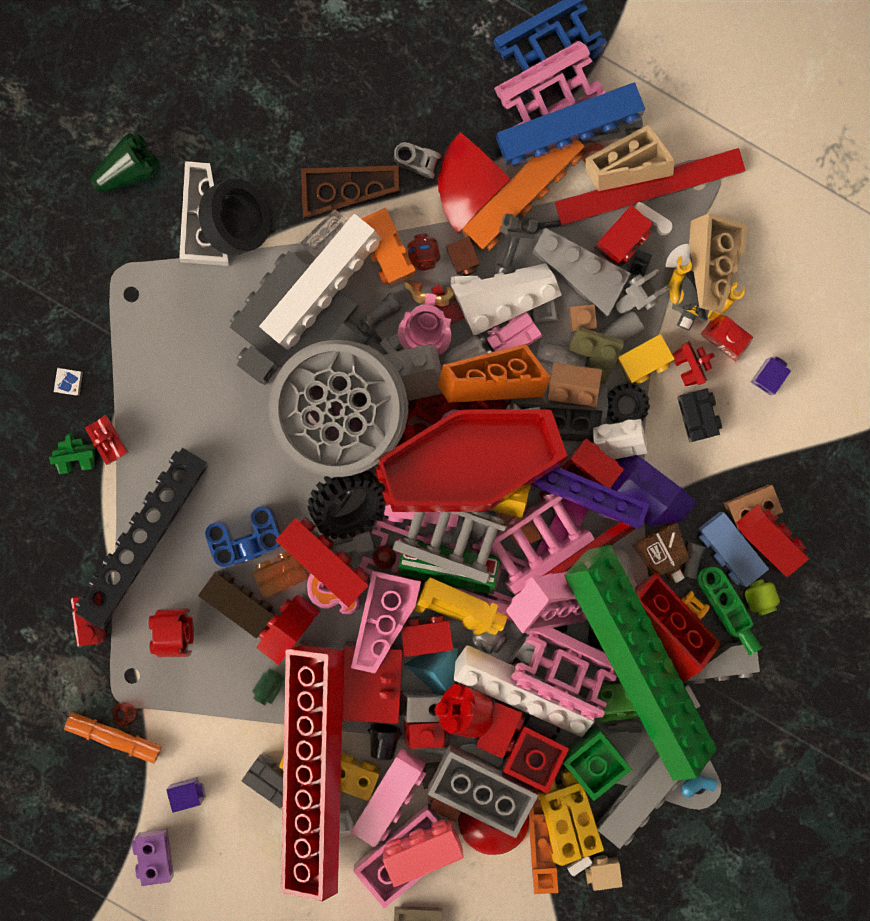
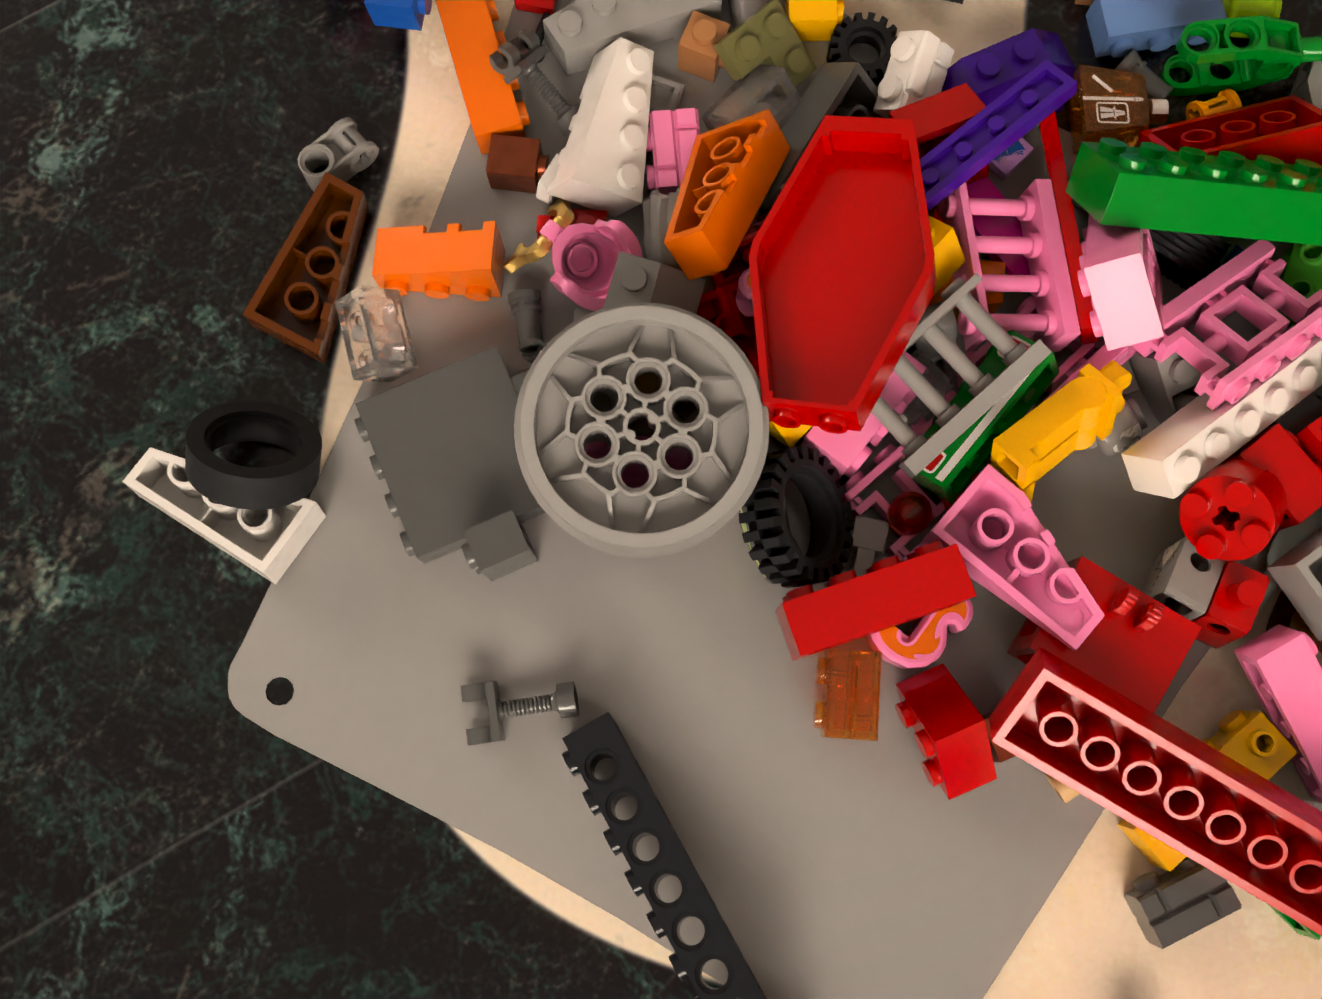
camera: 55 degrees left, 10 degrees down
(68, 381) = (354, 870): white tile -> none
(73, 450) = (469, 947): green hips -> none
(106, 440) = (481, 858): red hips -> none
(125, 165) = (74, 586): dark green cone -> none
(171, 633) = (856, 928): red brick -> none
(202, 436) = (563, 701): none -> dark grey bar
(237, 603) = (861, 790): dark brown brick -> none
(246, 547) = (777, 722): blue beam -> none
(268, 687) = (1023, 816): clear green brick -> none
(321, 282) = (430, 373): white brick -> none
(383, 741) = (1207, 677): black piece -> none
(423, 252) = (475, 205): clear red head -> none
(426, 637) = (1078, 507): red brick -> none
(435, 669) = (1126, 530): medium azure slope -> none
(467, 181) = (413, 102): red brick -> none
(574, 384) = (801, 86): medium nougat brick -> none

